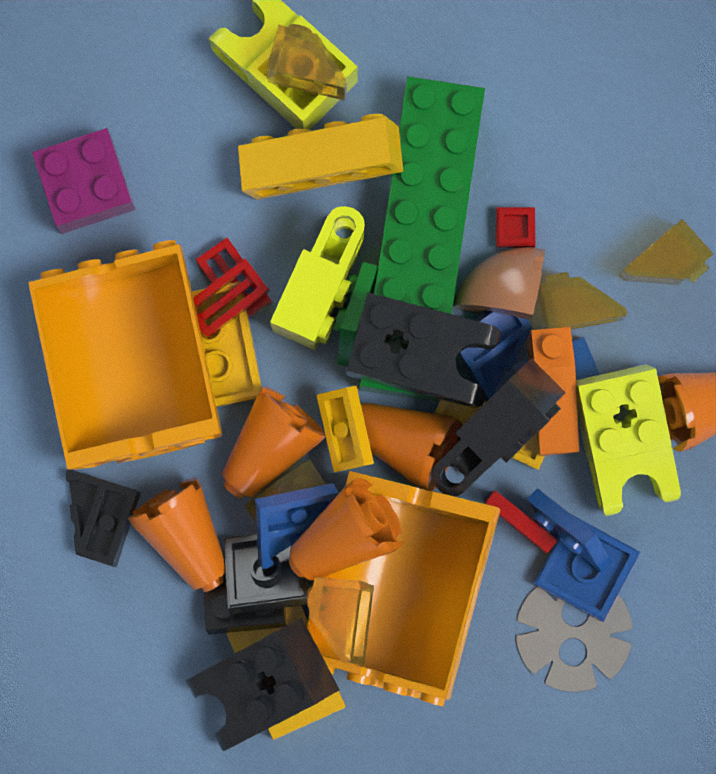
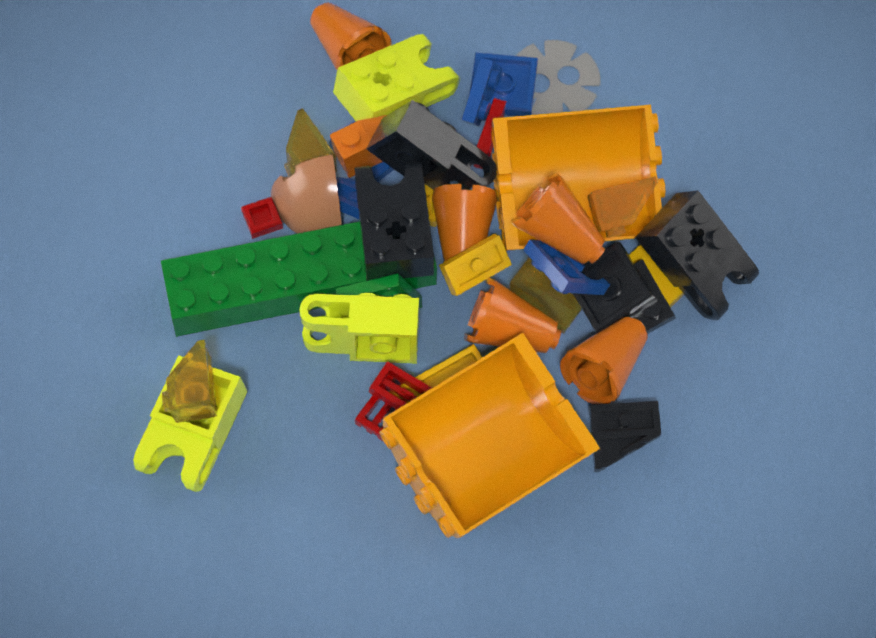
camera: 110 degrees left, 20 degrees down
(83, 181) = (353, 543): magenta brick -> none
(320, 157) = (264, 359): yellow brick -> none
(670, 259) = (243, 101): clear yellow slope -> none

